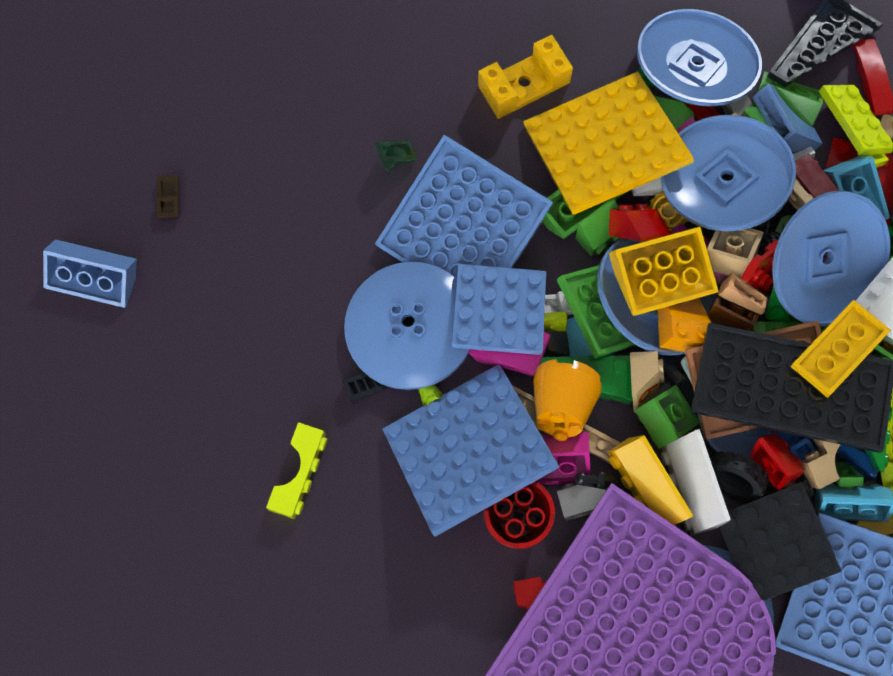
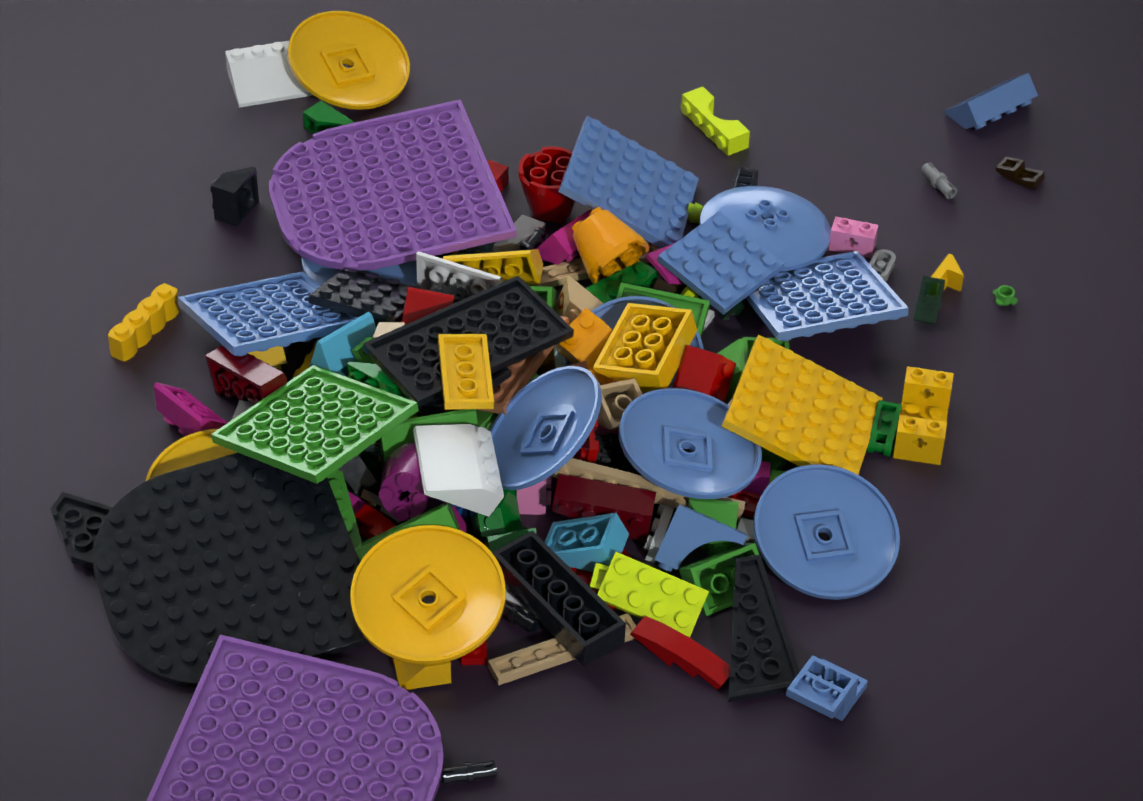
camera: 125 degrees right, 30 degrees down
(230, 246) = (939, 180): none -> light grey pin
(335, 109) = (1005, 295): none -> bright green plate
(345, 166) = (950, 272): none -> yellow slope
(361, 254) = (852, 236): none -> bright pink brick
(376, 216) = (883, 263): none -> light grey plate
(551, 99) = (884, 427): none -> green plate

